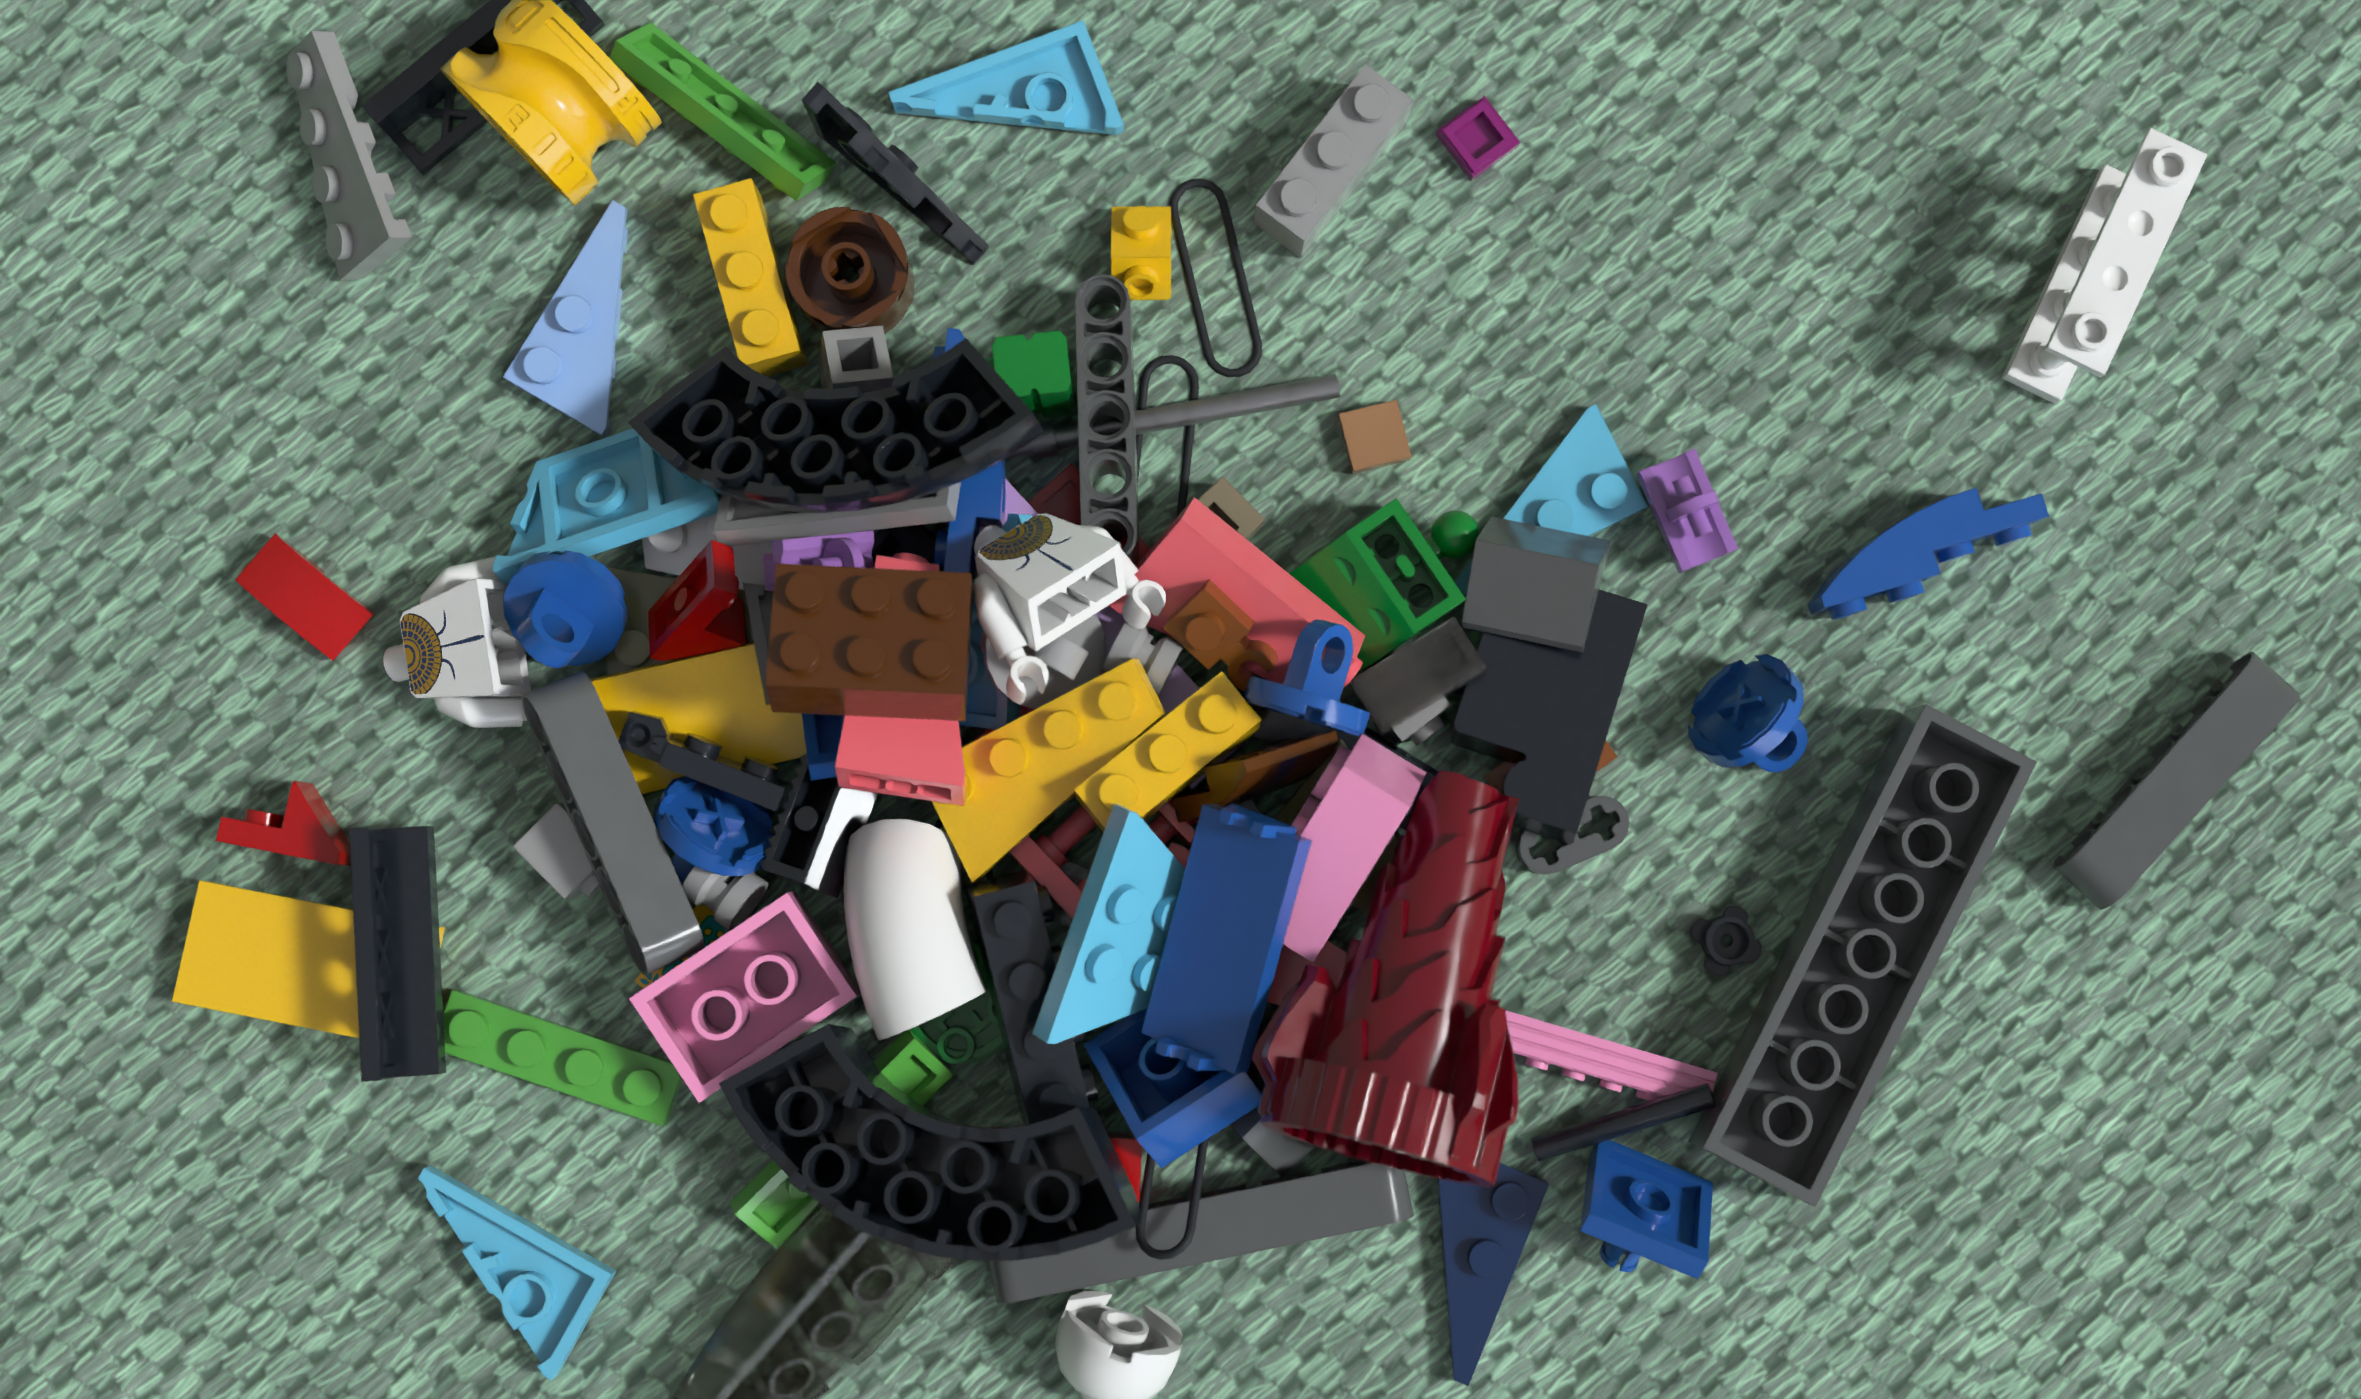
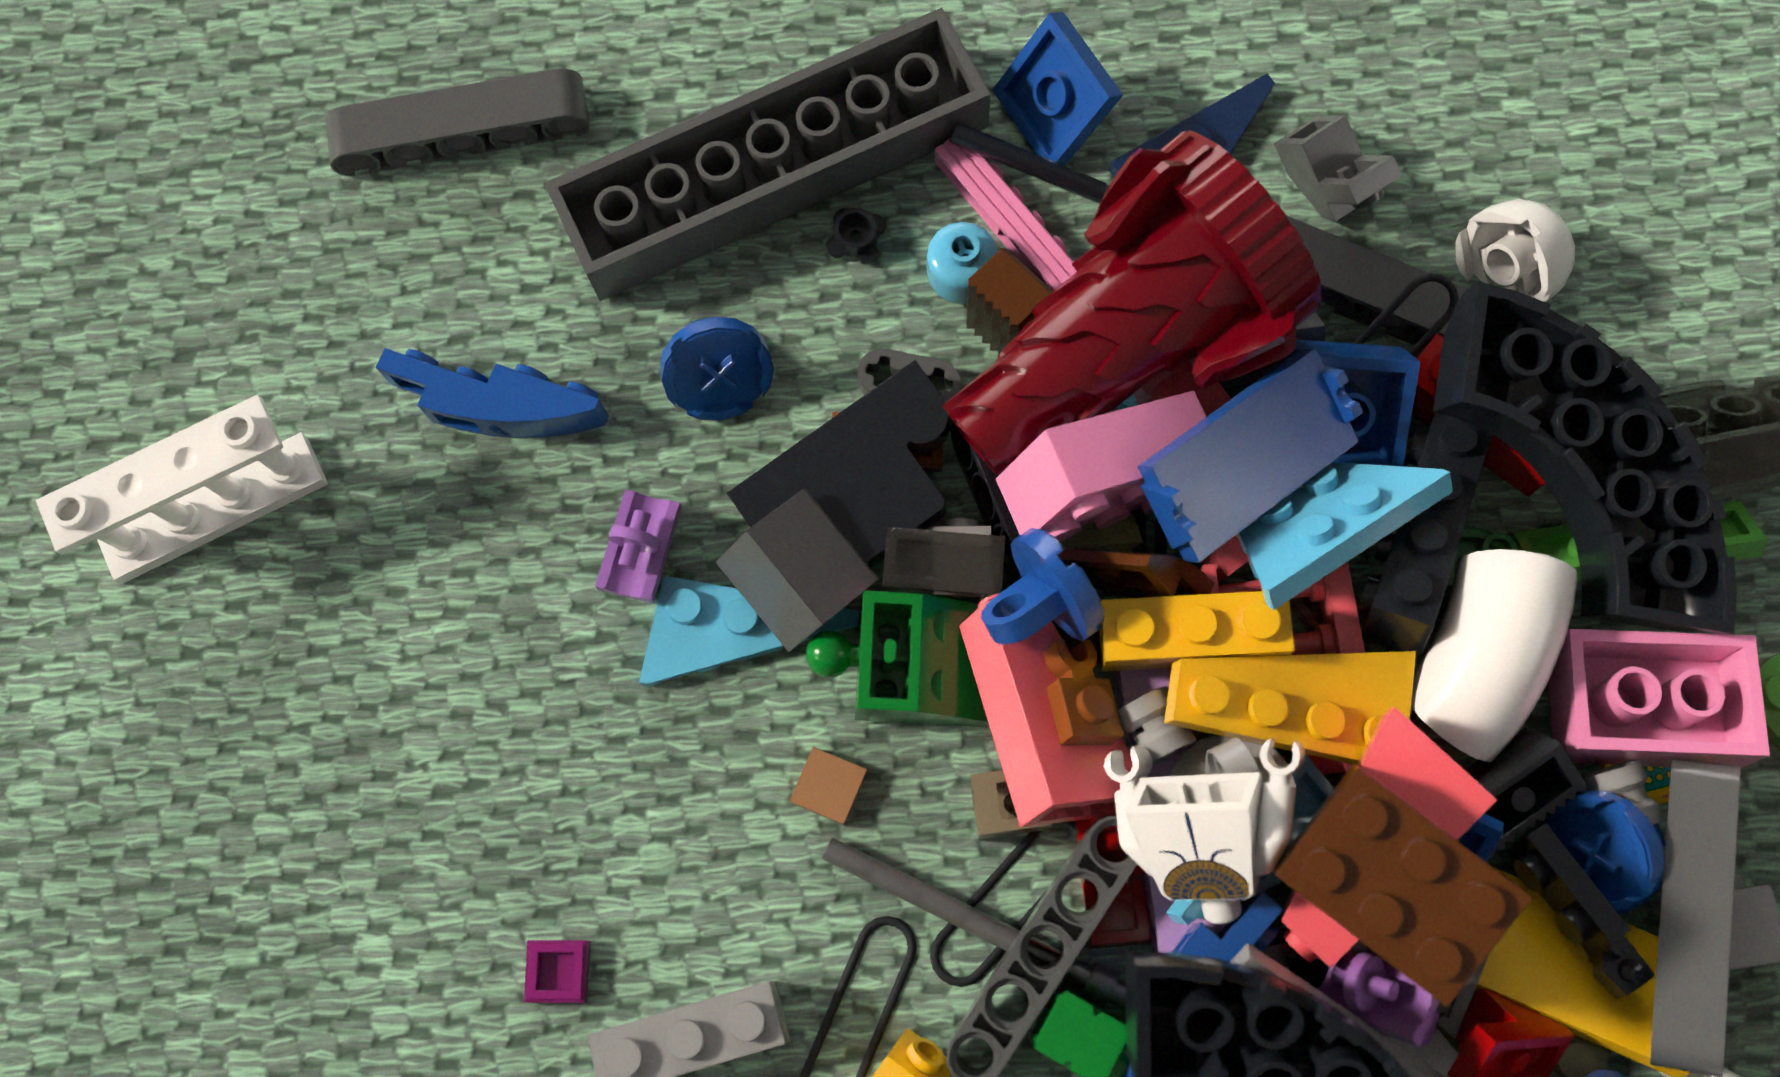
camera: 135 degrees left, 10 degrees down
(1340, 1321) = (1331, 168): none -> dark grey brick
(1540, 953) = (1002, 299): none -> reddish brown brick
(1586, 978) = (955, 256): none -> medium azure head

